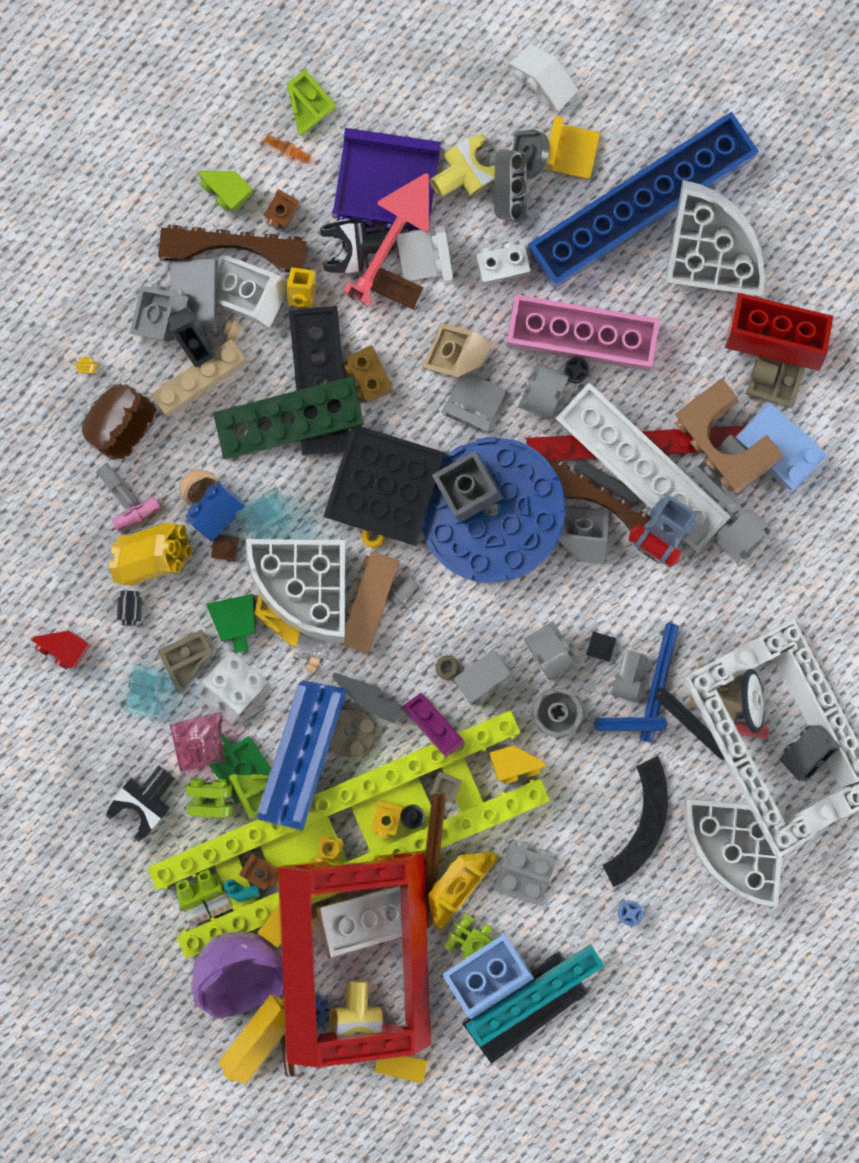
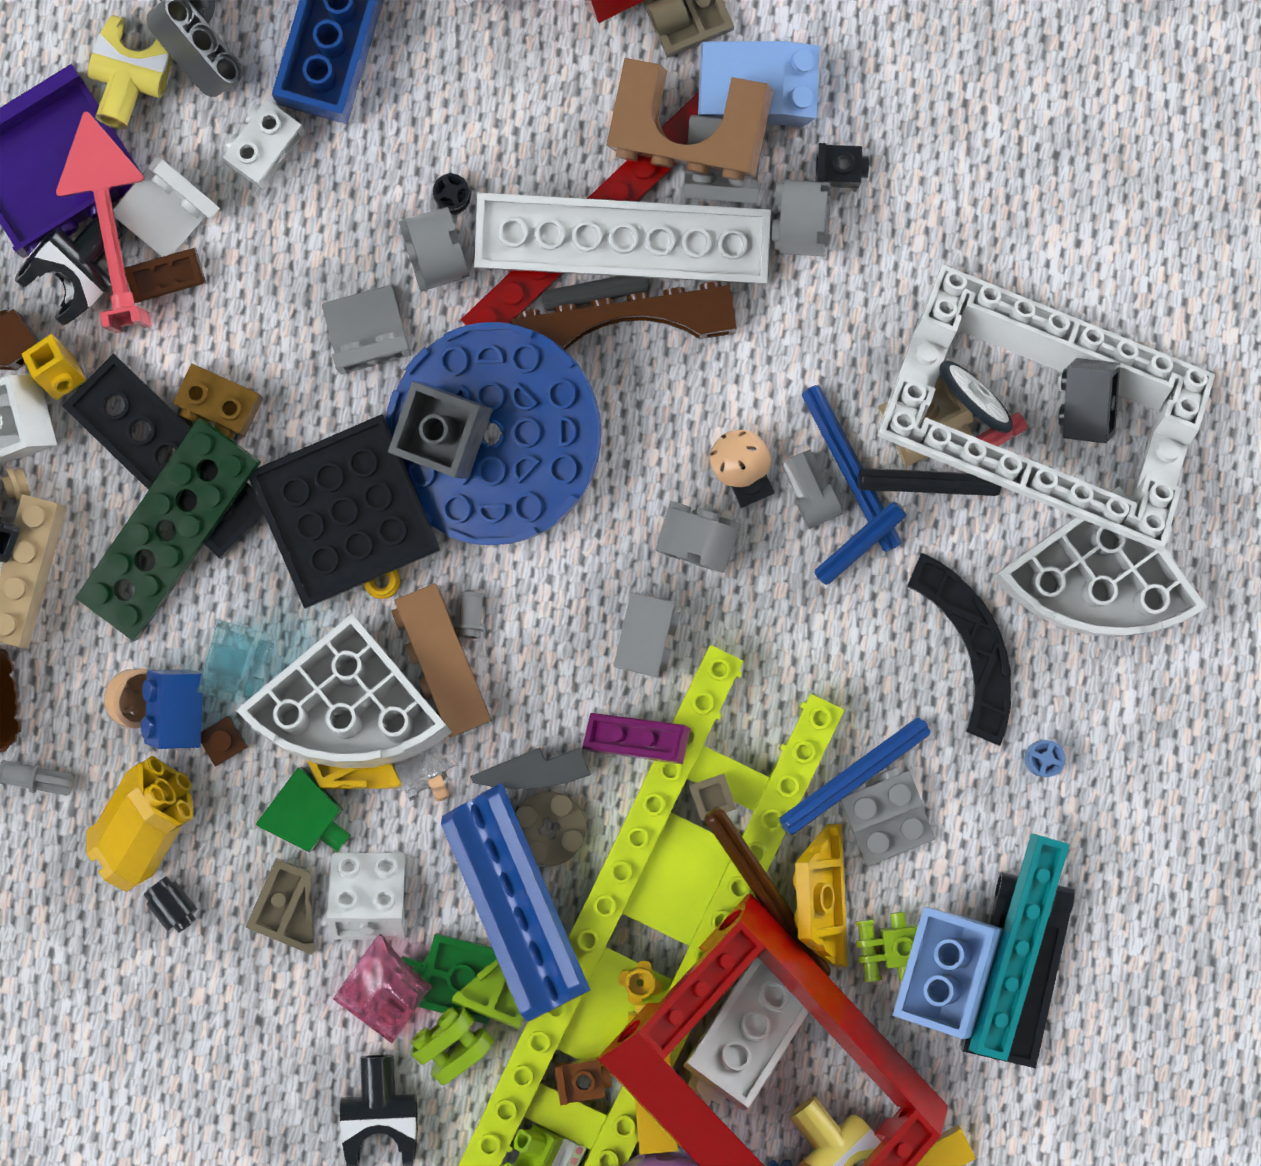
camera: 40 degrees left, 0 degrees up
(63, 645) = (133, 1014): red slope -> none
(136, 514) = (87, 790): bright pink pin -> none
(146, 691) = (272, 984): clear light blue brick -> none
(240, 893) = (579, 1124): teal arm -> none
(386, 809) = (673, 878): yellow brick -> none
(412, 816) = (703, 864): black plate -> none
(439, 667) = (595, 646): dark tan plate -> none
(456, 351) = (295, 288): tan slope -> none
(512, 761) = (763, 702): yellow slope -> none
(524, 838) = (854, 776): none -> blue axle
(563, 724) = (773, 582): light grey brick -> none
(583, 332) = (422, 143): bright pink brick -> none
(586, 533) = (623, 370): light grey slope -> none
(606, 623) = (733, 452): none -> light nougat helmet
(664, 531) = (709, 288): sand blue piece -> none
(777, 521) = (828, 170): none -> black brick

